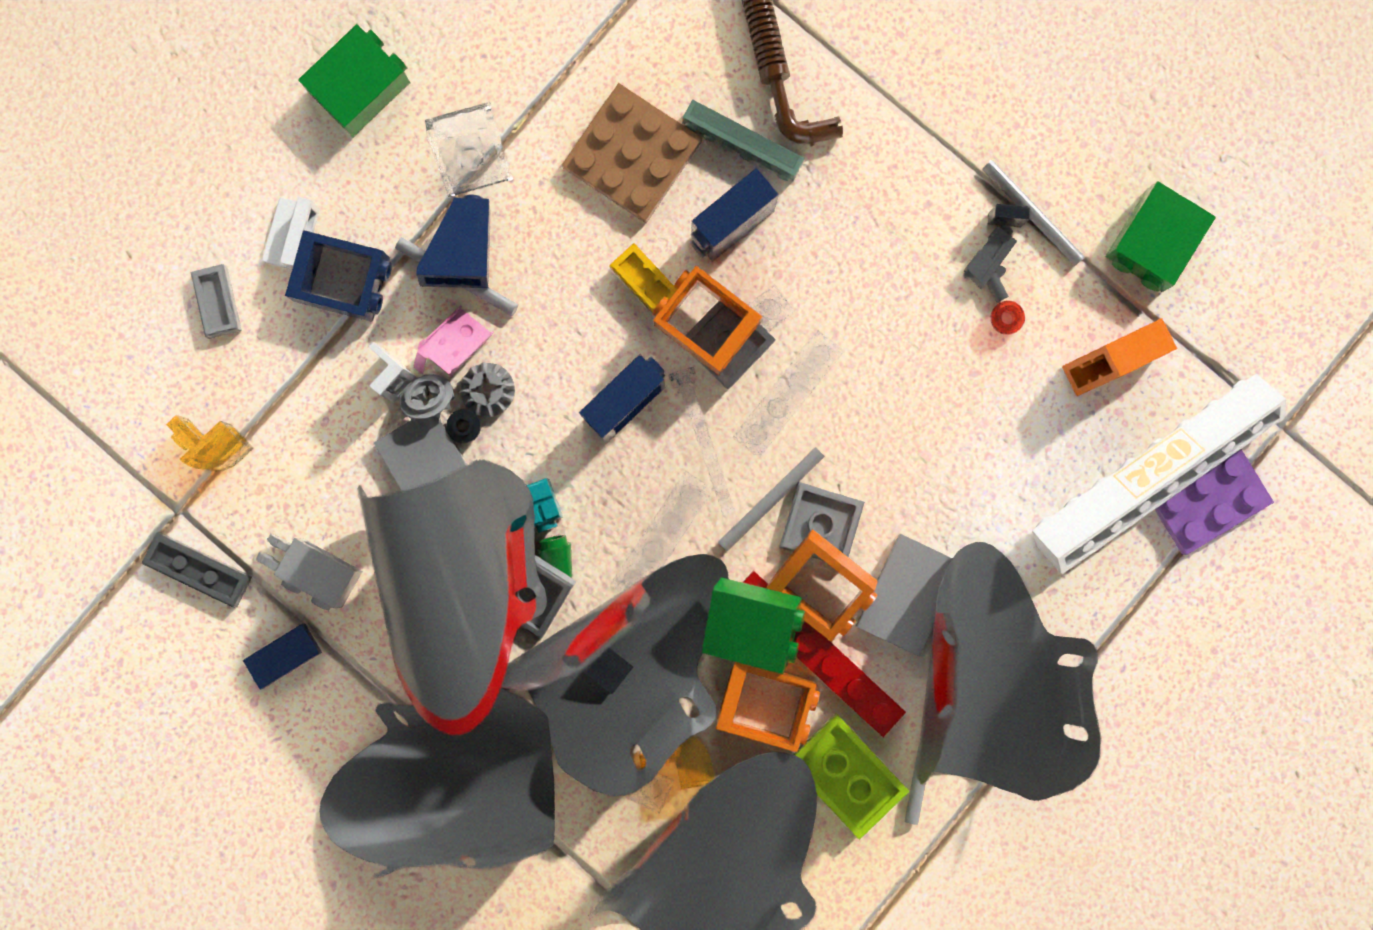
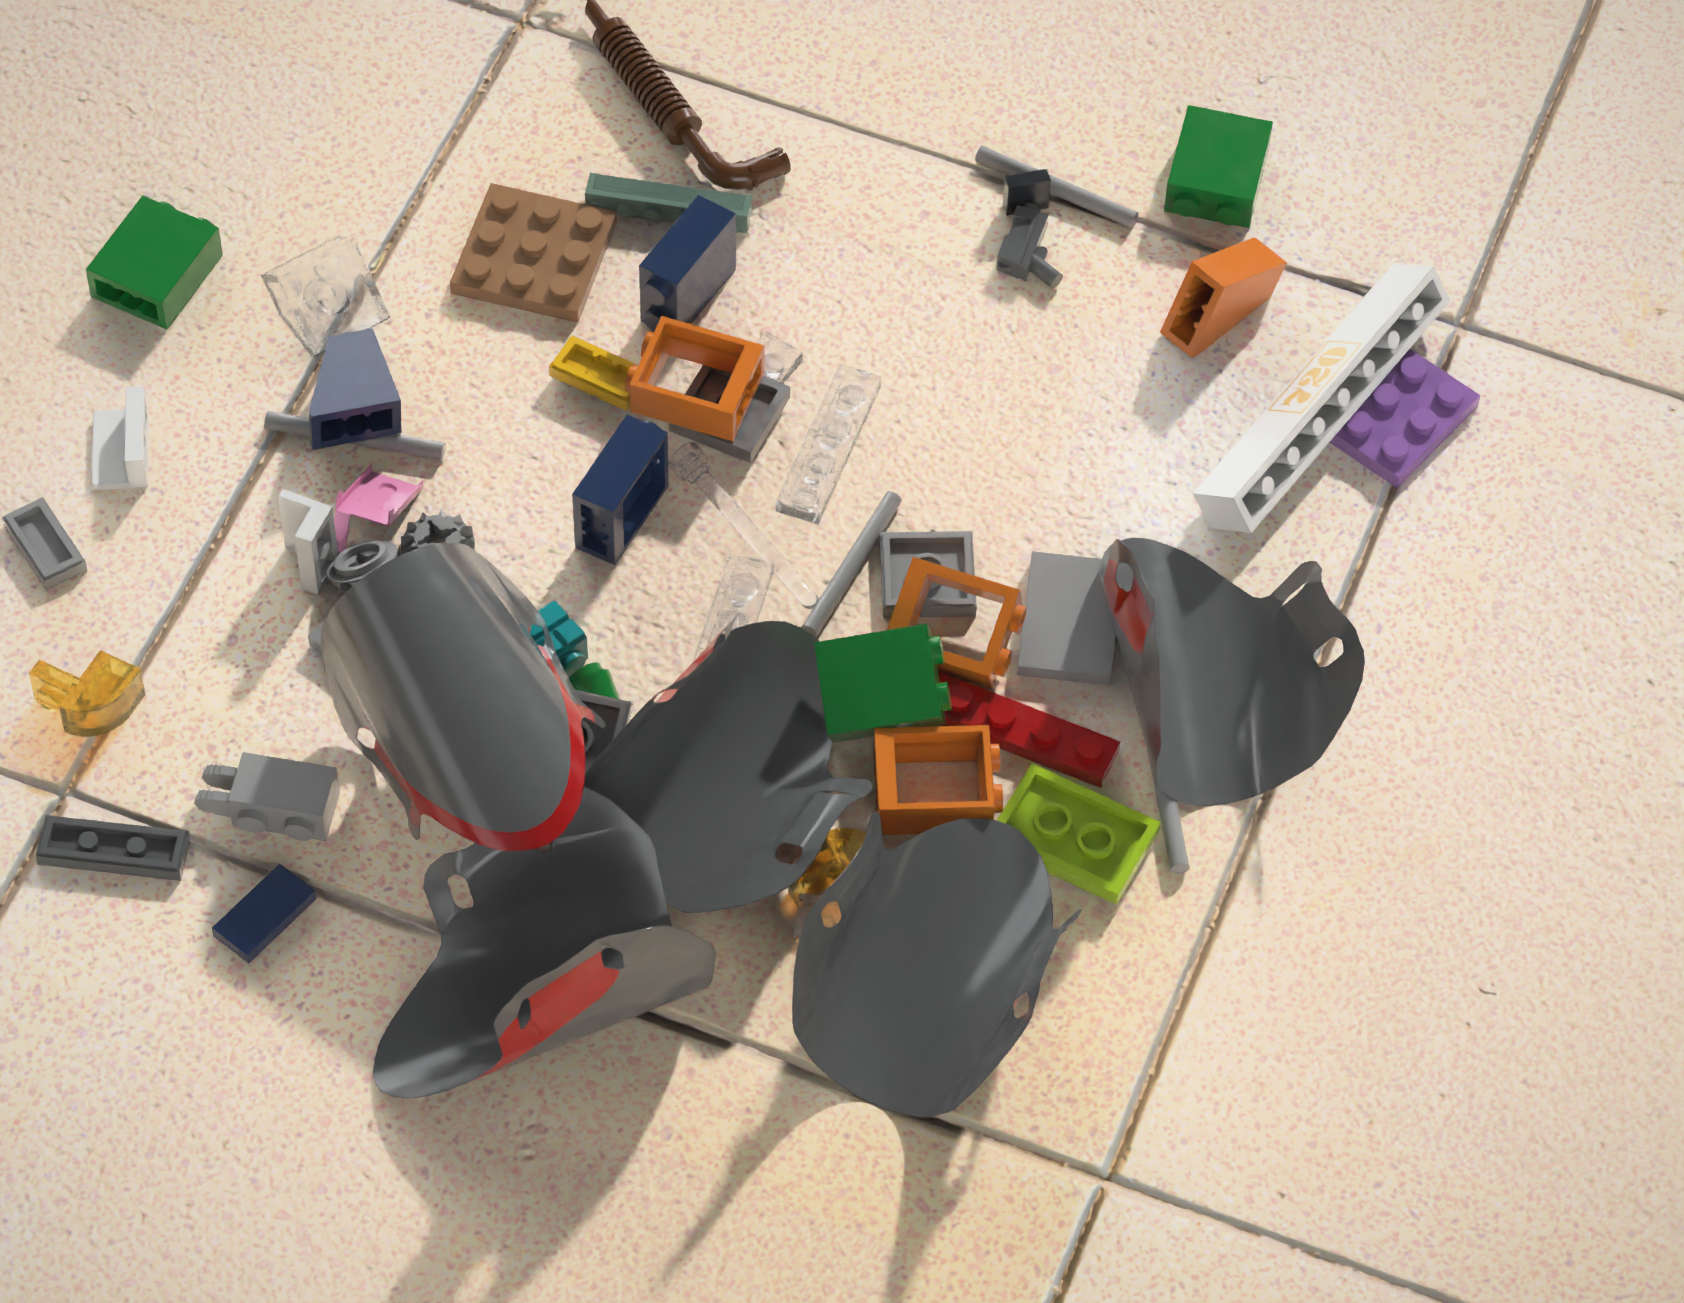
camera: 20 degrees left, 30 degrees down
(306, 267) = (202, 499): dark blue window -> none
(608, 670) = (712, 800): black tile -> none
(1014, 310) = (1074, 287): clear red plate -> none

